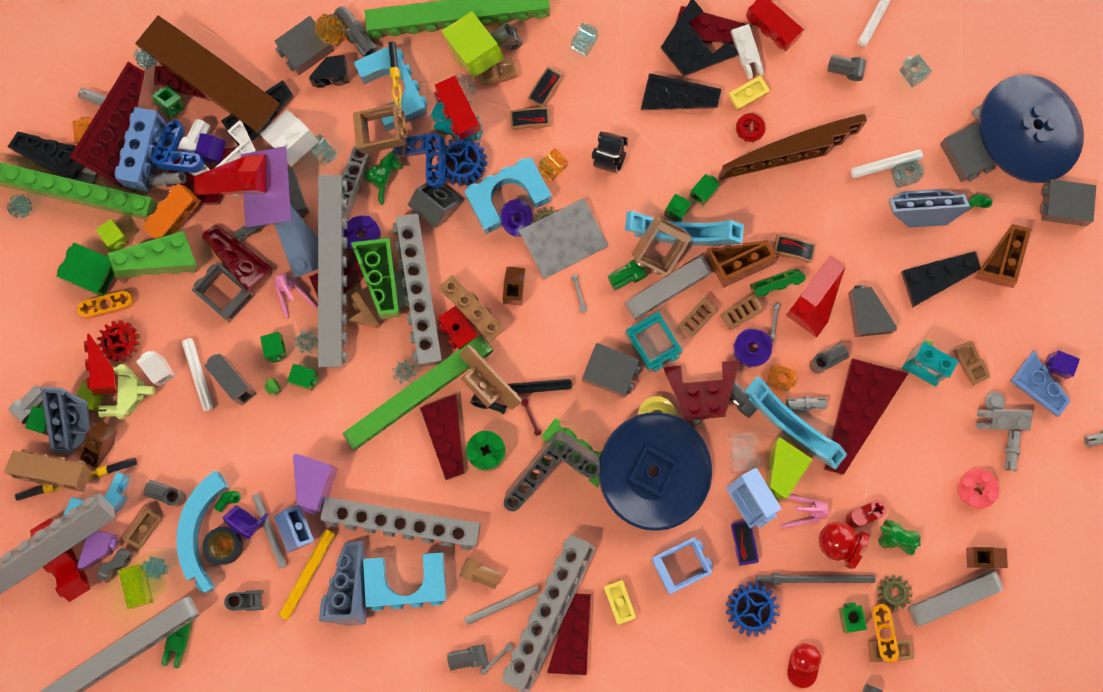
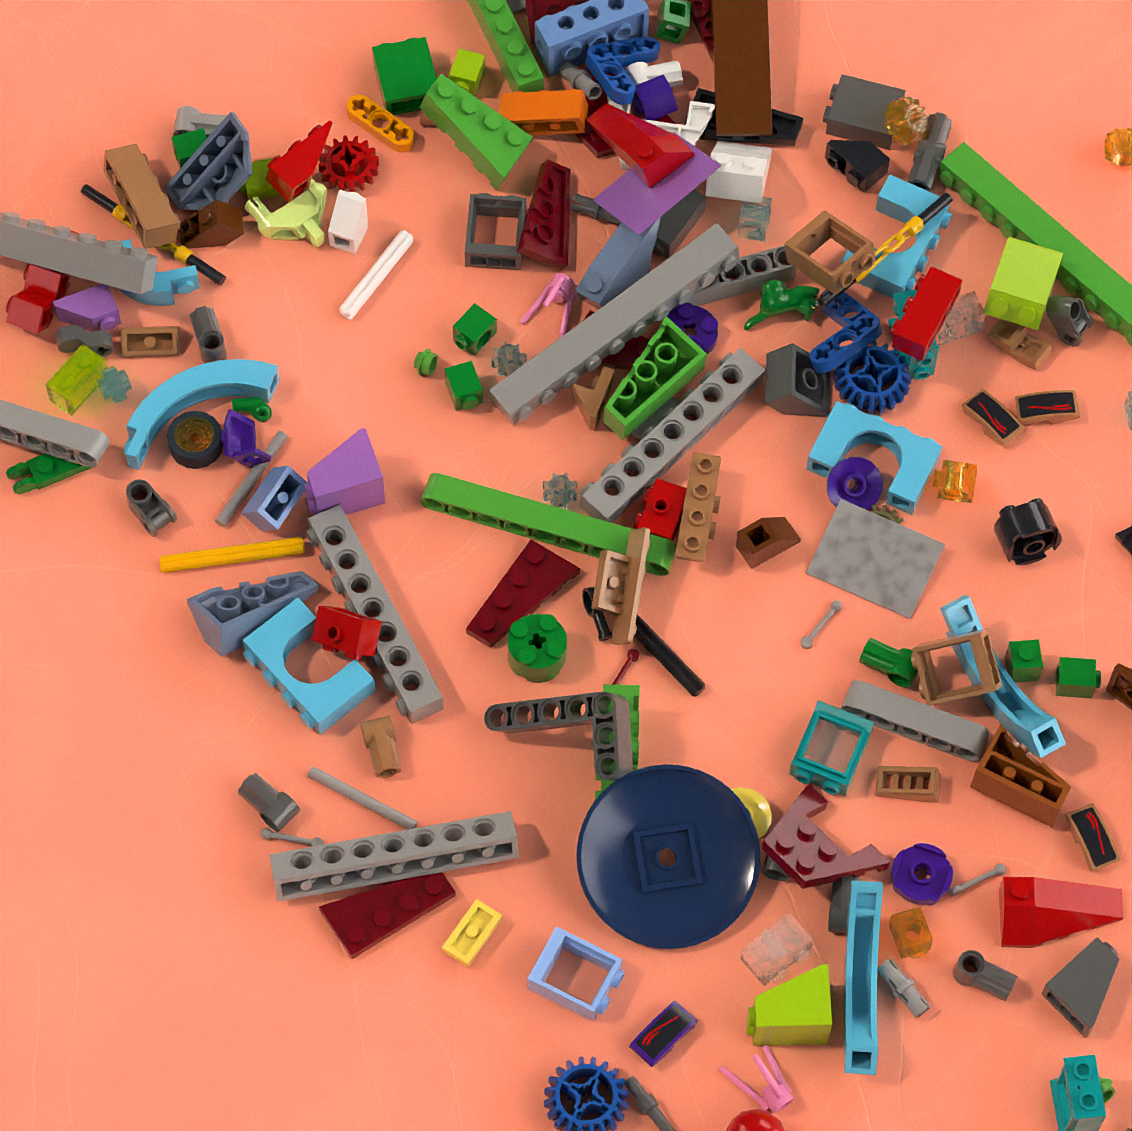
camera: 50 degrees right, 15 degrees down
(230, 379) = (398, 307): dark grey brick -> none
(403, 547) = (346, 631): none -> red brick
(611, 370) = (754, 723): dark grey brick -> none
(753, 499) = (726, 995): light blue window -> none
(756, 303) = (970, 823): medium nougat slope -> none
(777, 282) = (1032, 846): green hinge -> none
(862, 403) = (962, 1060): dark red wing -> none

